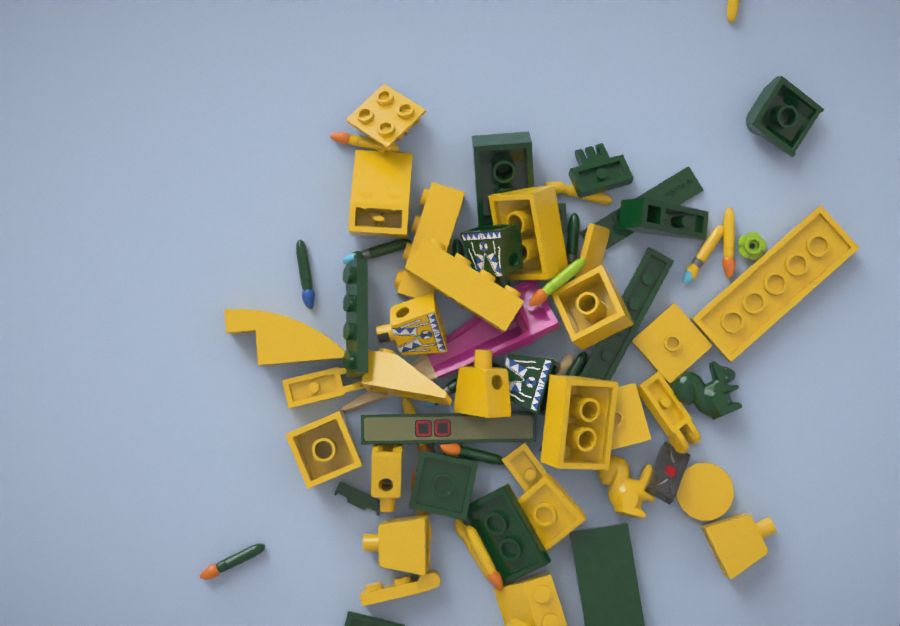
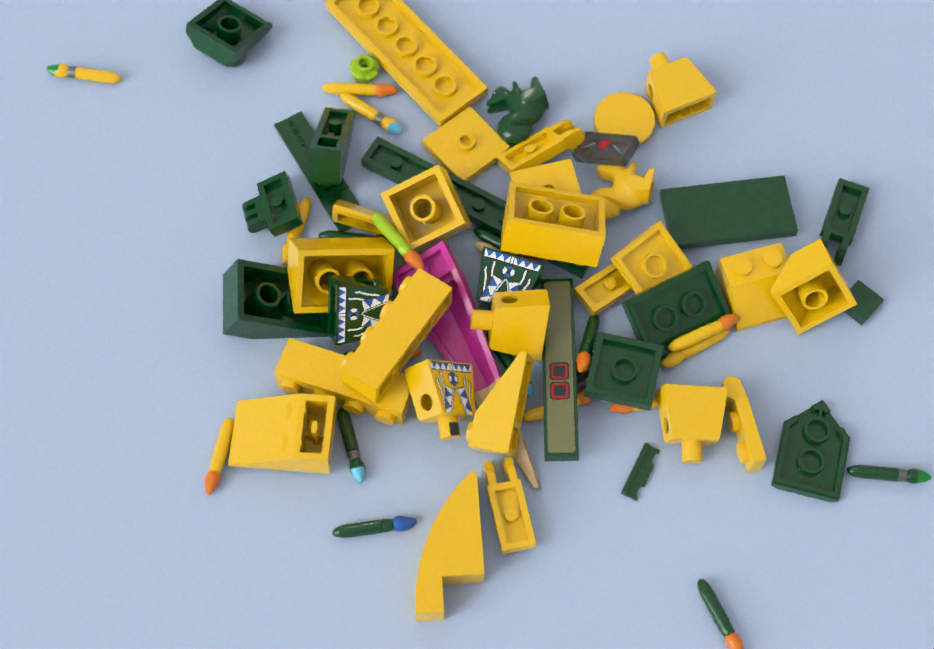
camera: 90 degrees left, 20 degrees down
(324, 449) = (585, 499): yellow brick -> none
(356, 326) = (430, 459): dark green plate -> none
(386, 117) = (192, 425): yellow hinge -> none
(386, 463) = (612, 430): yellow torso -> none

